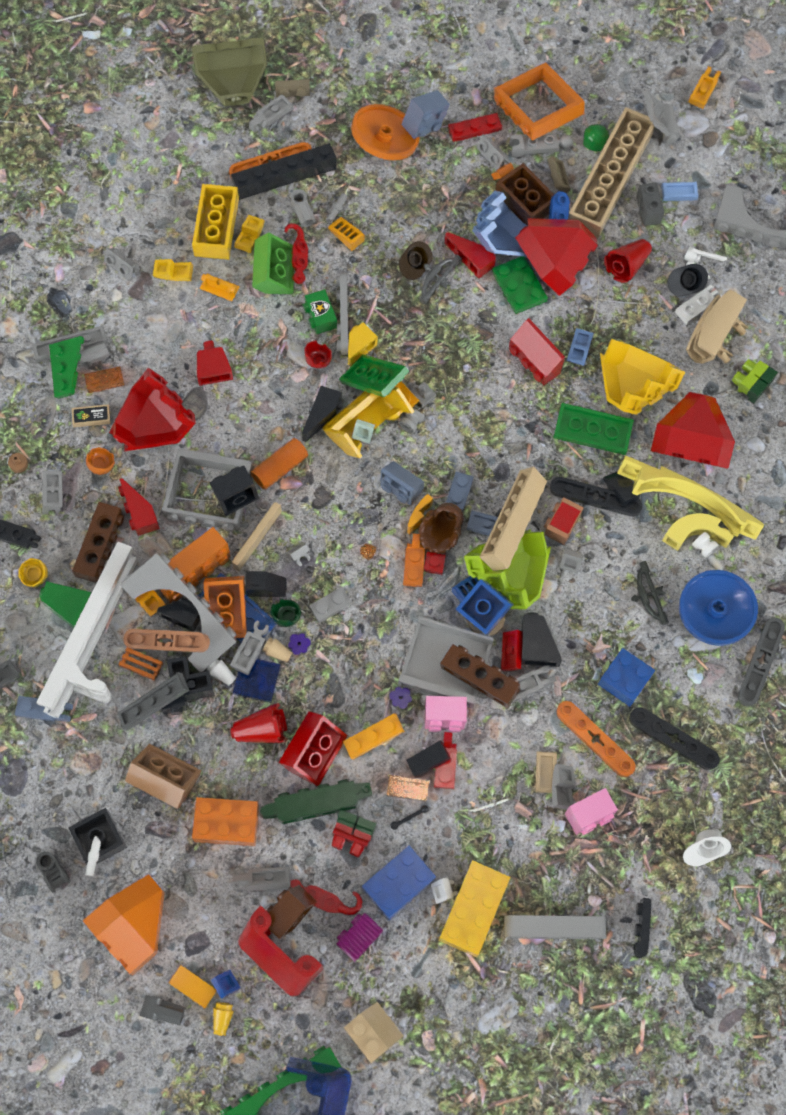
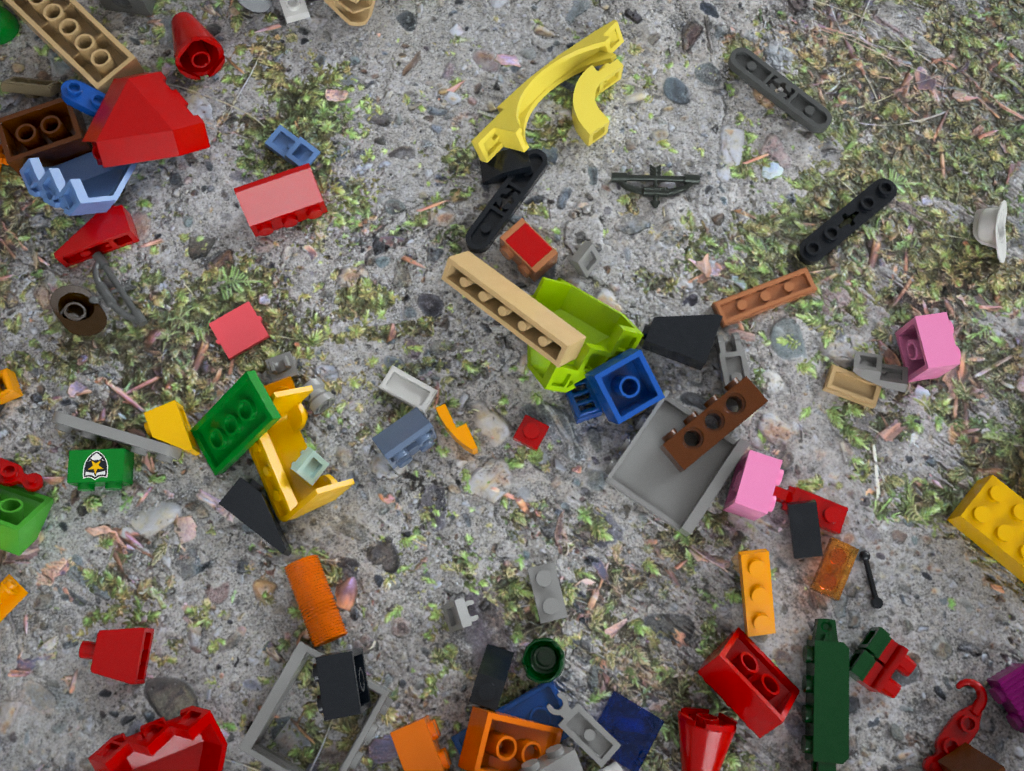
camera: 70 degrees left, 5 degrees up
(256, 536) = (414, 668): tan tile -> none
(277, 650) = (592, 690): tan cone -> none
(295, 640) = (598, 659): dark purple plant -> none
(317, 355) = (167, 493): red hair -> none
(368, 551) = (486, 516): clear orange hinge -> none
(398, 882) = (962, 623): blue brick -> none
(399, 692) = (714, 538): dark purple plant -> none
(414, 563) = (522, 459): orange hinge -> none
(436, 476) = (408, 389): none -> white tile
(439, 360) = (239, 330): none -> coral piece
(441, 528) = (490, 406): reddish brown hair -> none
(442, 890) = (981, 567): white tile -> none
(460, 489) = (440, 367): sand blue plate -> none
(481, 523) = (498, 350): sand blue plate -> none
(511, 650) = (684, 373): red plate -> none
(519, 284) = (170, 191): green plate -> none
(591, 693) = (764, 297): none -> nougat tile
(593, 428) = (413, 171): green plate -> none
(610, 753) = (802, 322): orange piece -> none
(626, 677) = (759, 247): blue brick -> none
(636, 377) = (363, 94): yellow panel -> none
(695, 432) = (465, 52): red panel -> none
(703, 543) = (614, 97): white wheel -> none
(718, 607) = (702, 110): blue dish -> none

